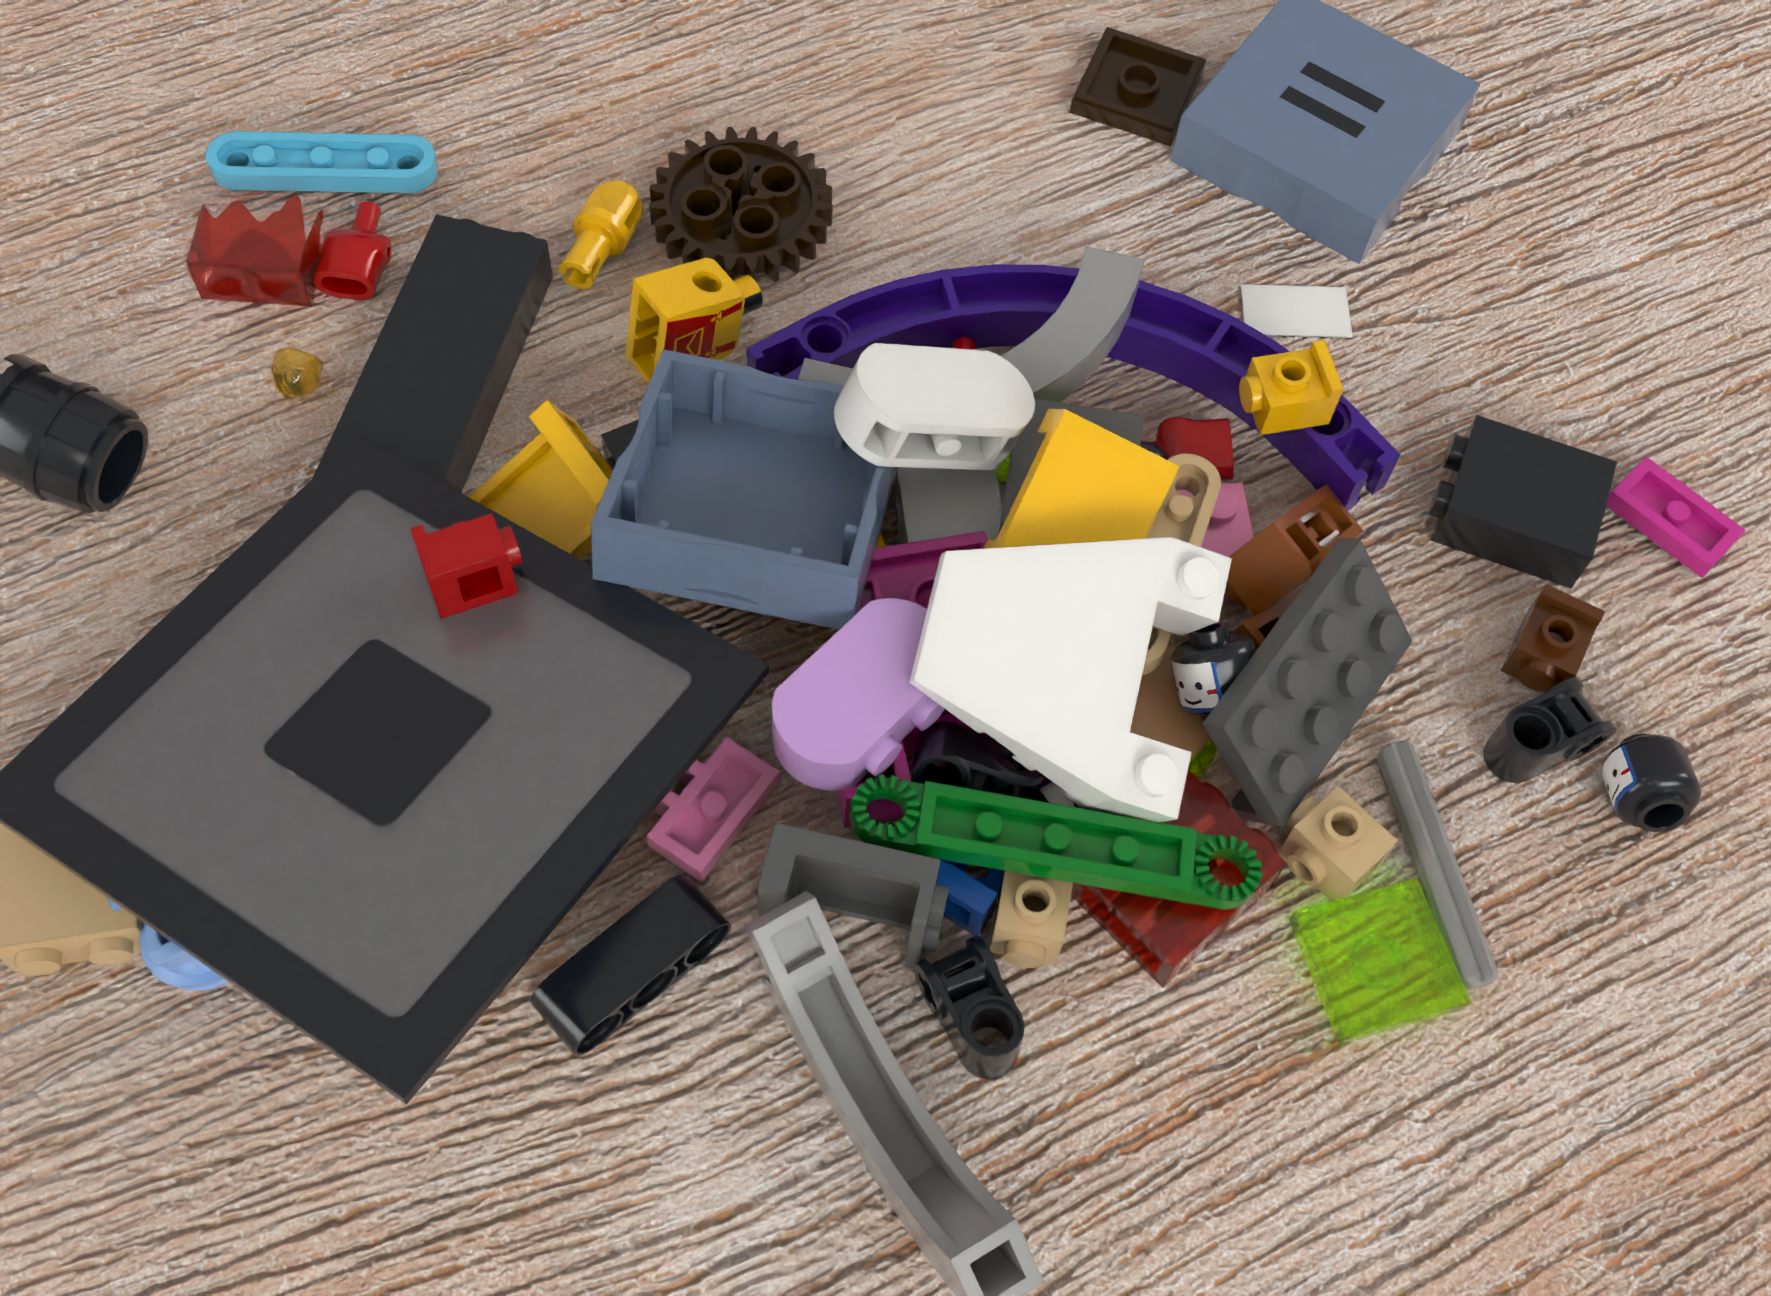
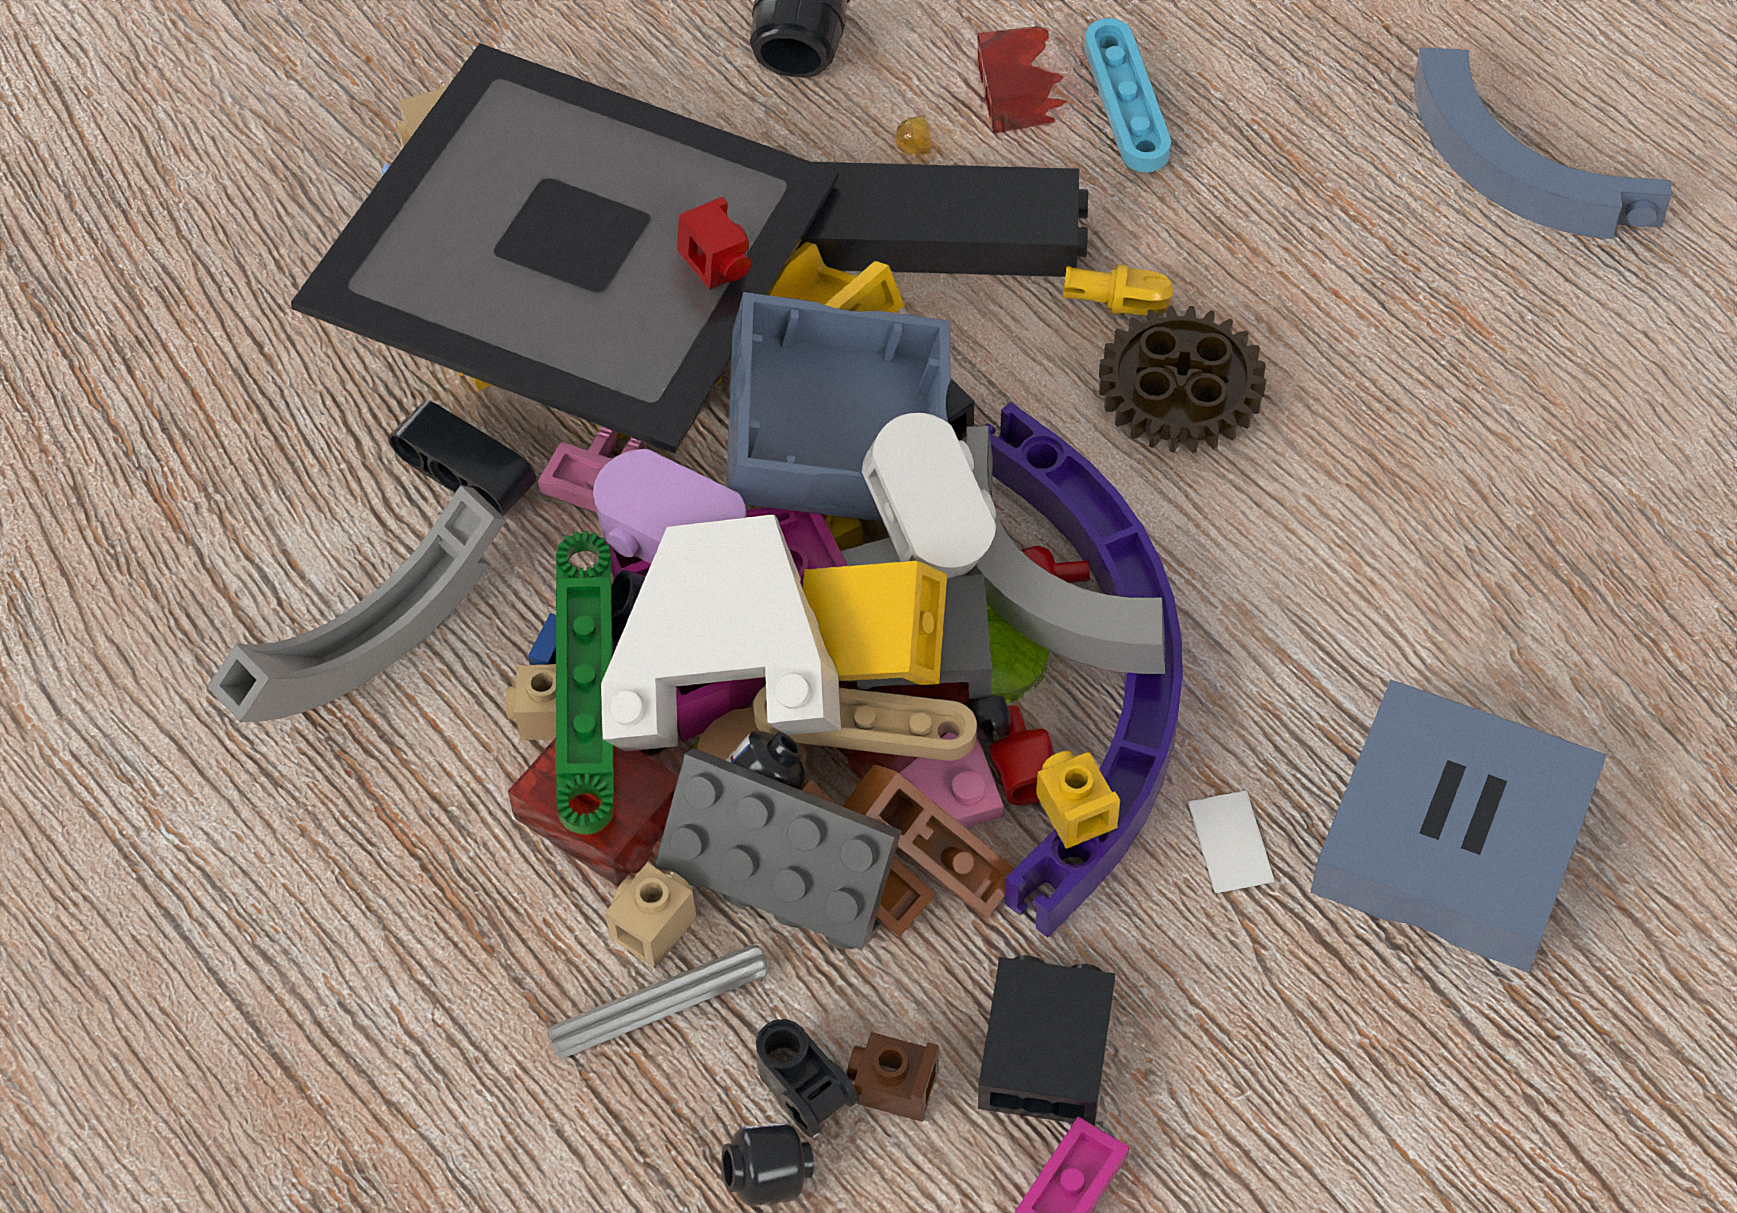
camera: 85 degrees right, 5 degrees down
(354, 257) = (1044, 141): red piece -> none
(687, 312) = (1034, 359): yellow torso -> none
(856, 882) = (533, 537): dark grey panel -> none
(969, 995) = (467, 675): black piece -> none
(1137, 86) = (1464, 660): dark brown tile -> none
(1378, 961) = (560, 964): clear neon green tile -> none

